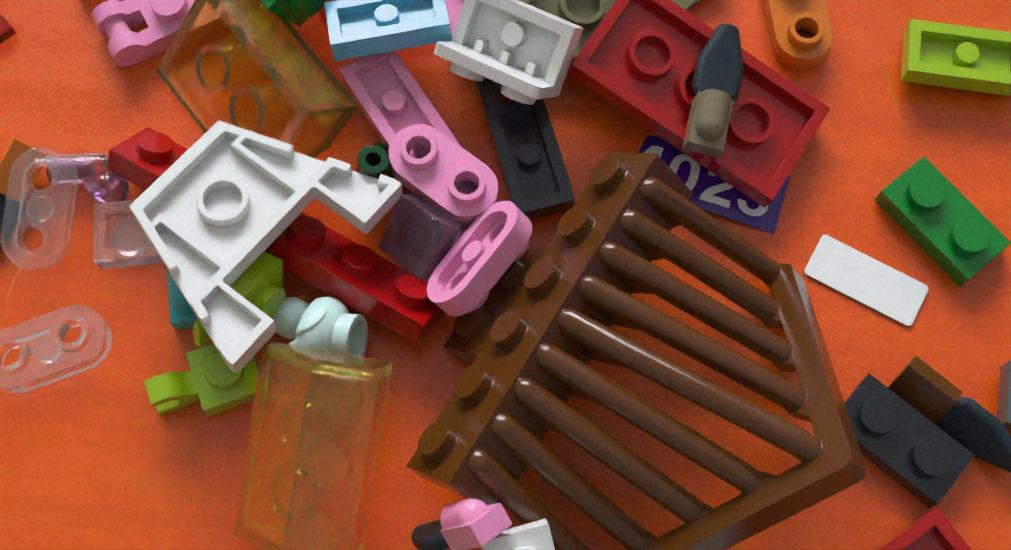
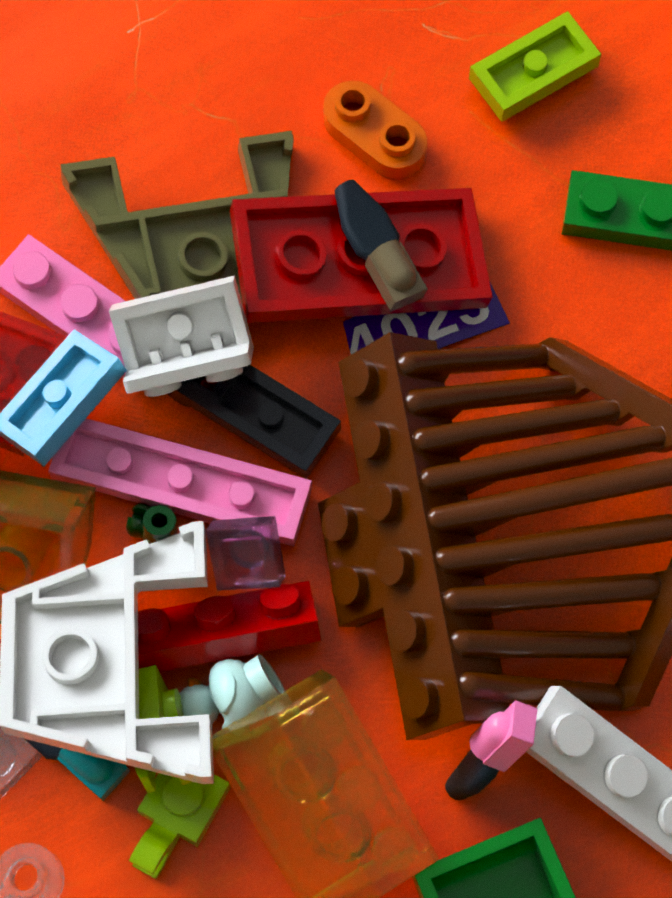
camera: 40 degrees left, 0 degrees up
(441, 172) = (219, 487): bright pink plate -> none
(479, 259) = (314, 530): bright pink plate -> none
(866, 280) = (609, 302): white sticker -> none

